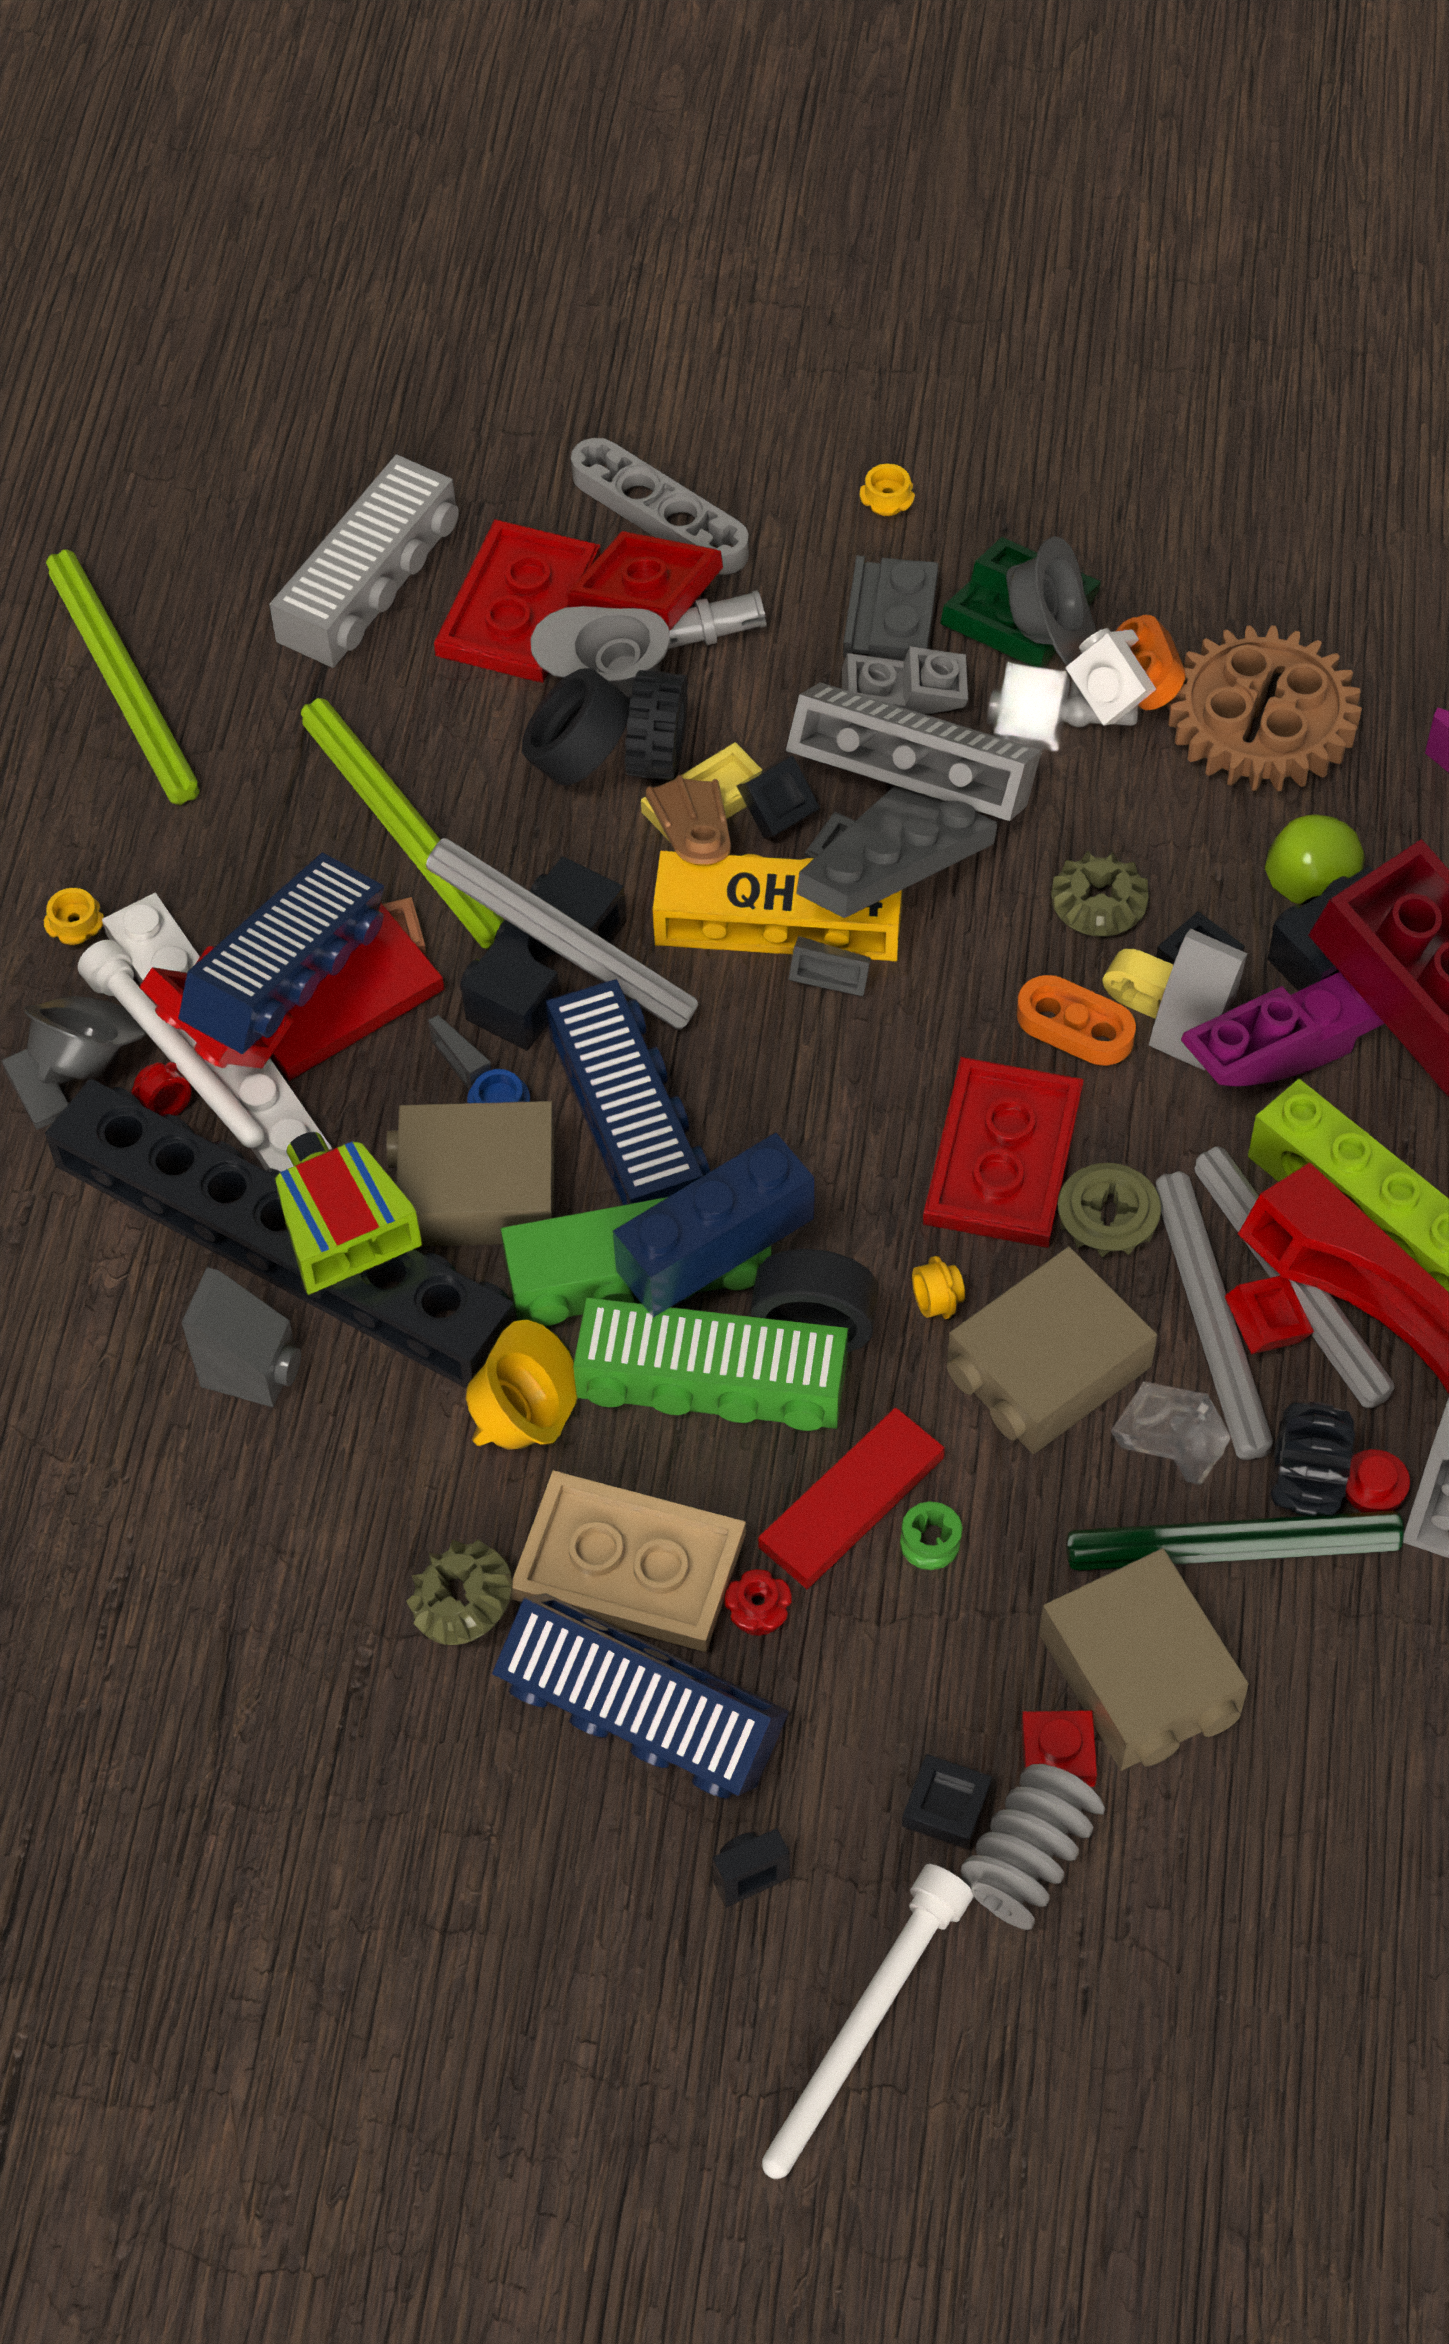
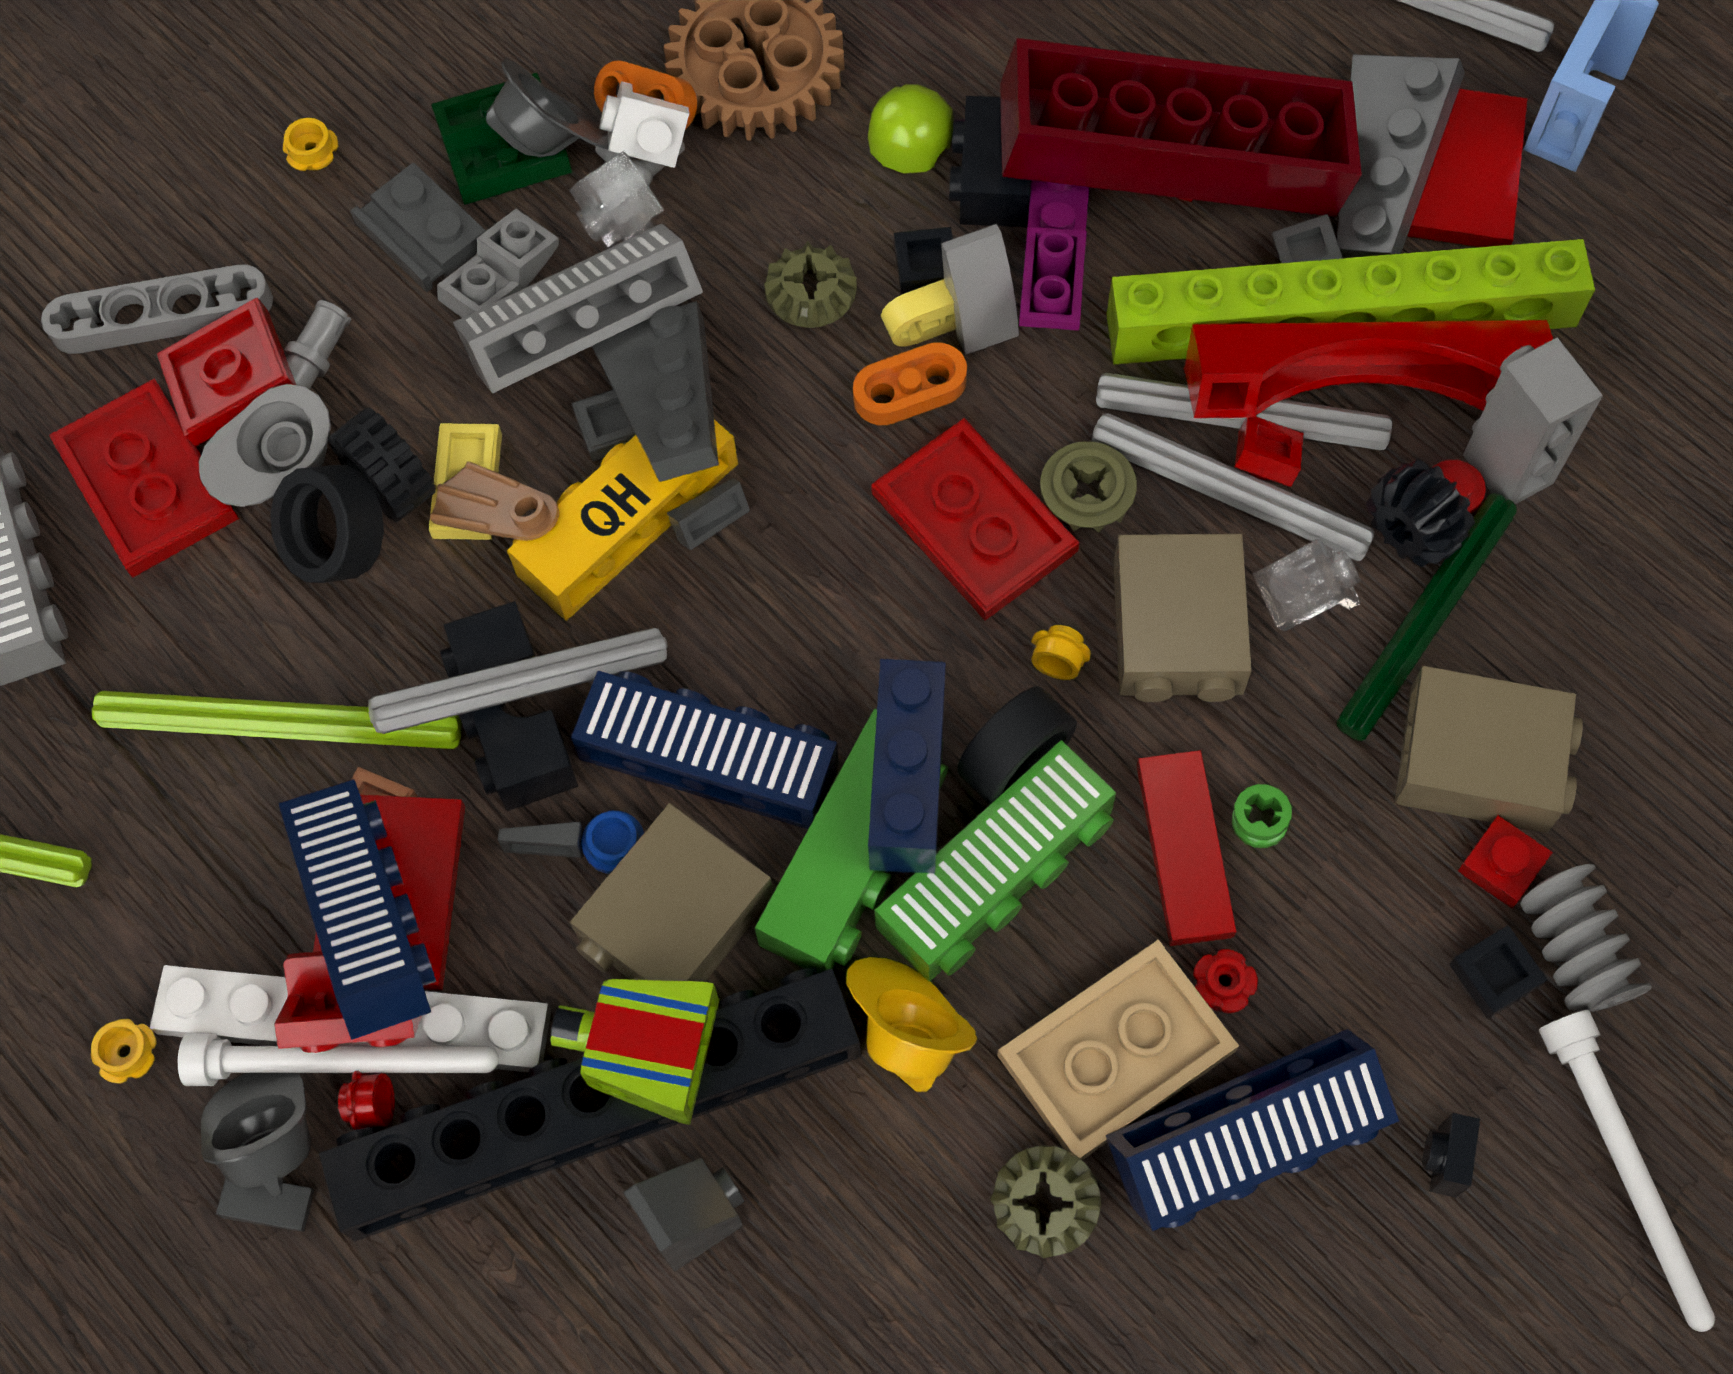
camera: 50 degrees left, 10 degrees up
(778, 796) = (523, 431): black plate -> none

